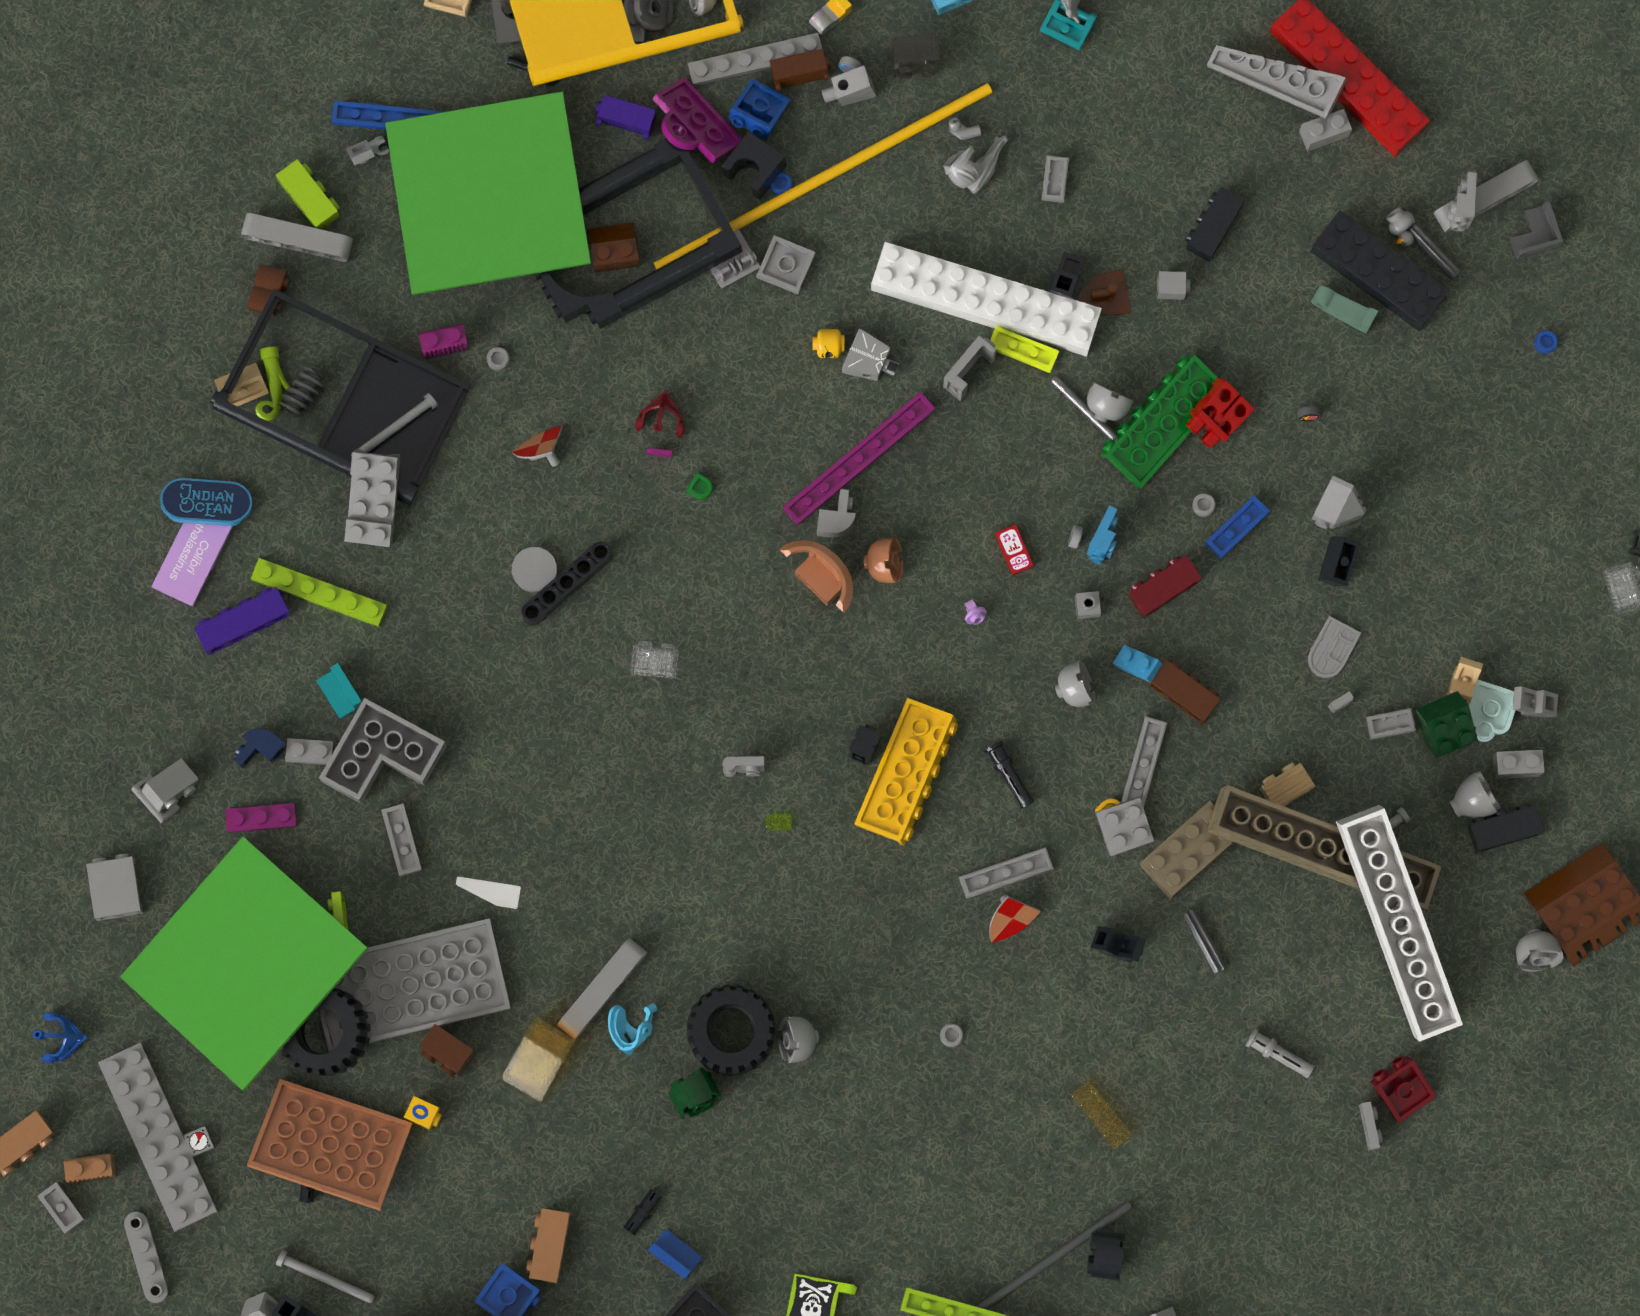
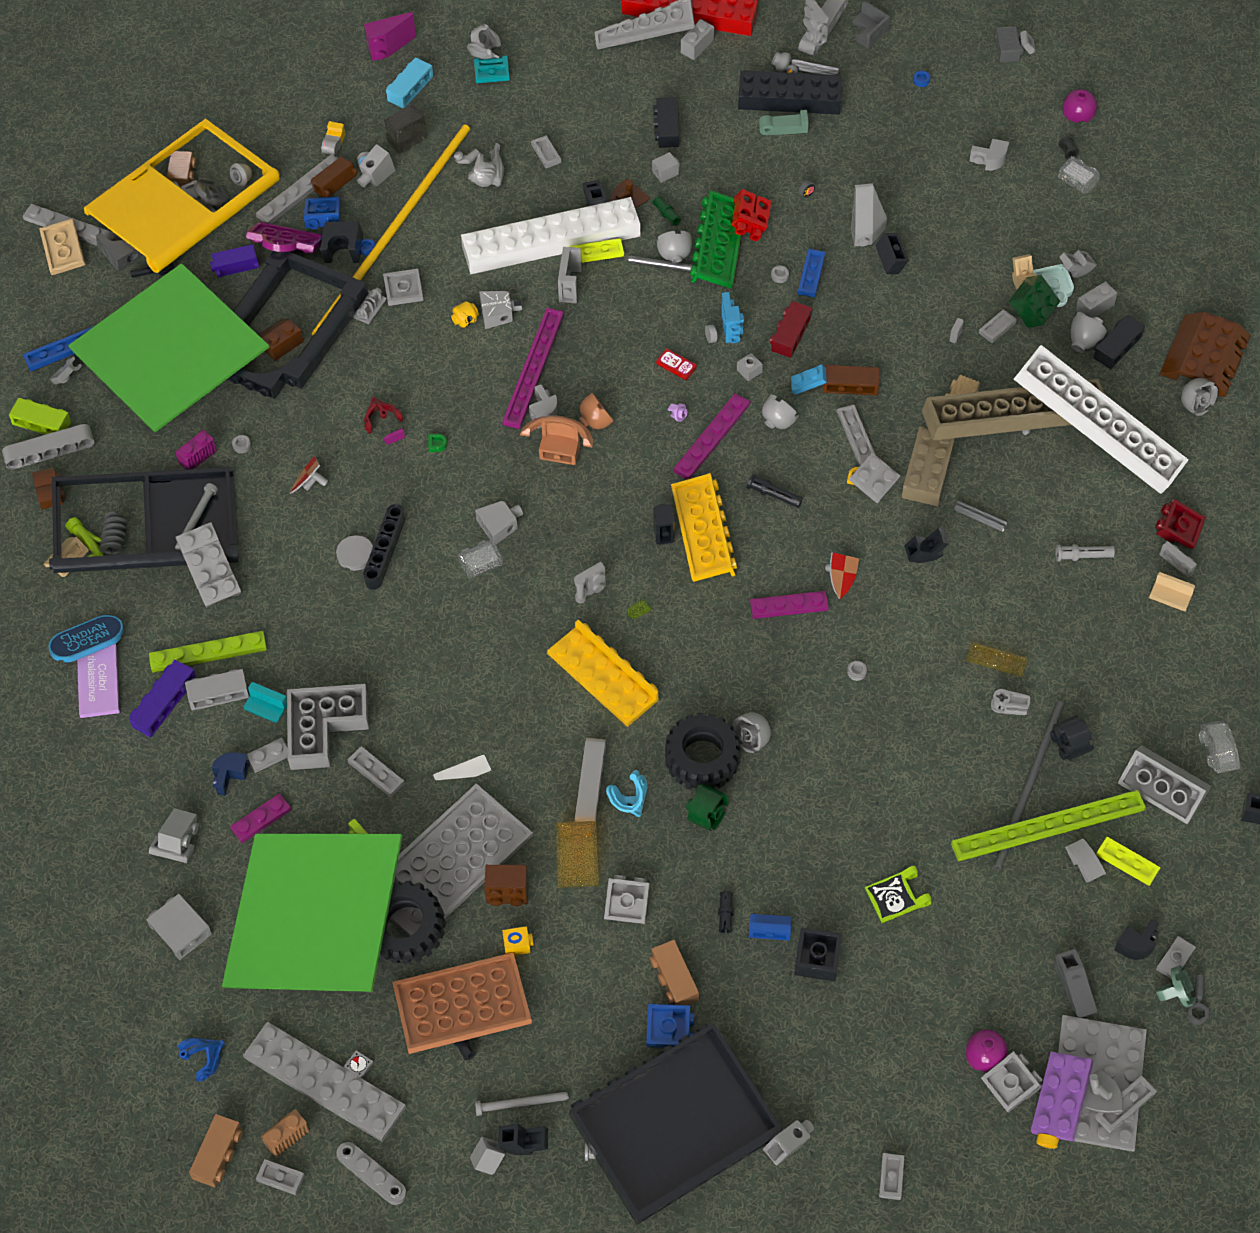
camera: 30 degrees left, 20 degrees down
(301, 644) = (216, 689): none -> light grey brick
(555, 1138) = (627, 899): none -> light grey plate
(694, 874) = (604, 673): none -> yellow bracket
(702, 627) = (498, 520): none -> light grey torso
(934, 916) = (789, 604): none -> magenta plate
(991, 664) = (711, 436): none -> magenta plate
(1006, 873) = (817, 552): light grey tile -> none
(1080, 1175) = (1011, 702): none -> light grey piece
(1135, 344) = (666, 211): none -> dark green pin
(1332, 648) = (925, 307): light grey window -> none
(1334, 1159) = (1172, 591): none -> tan panel
(1546, 504) = (993, 157): none -> light grey brick

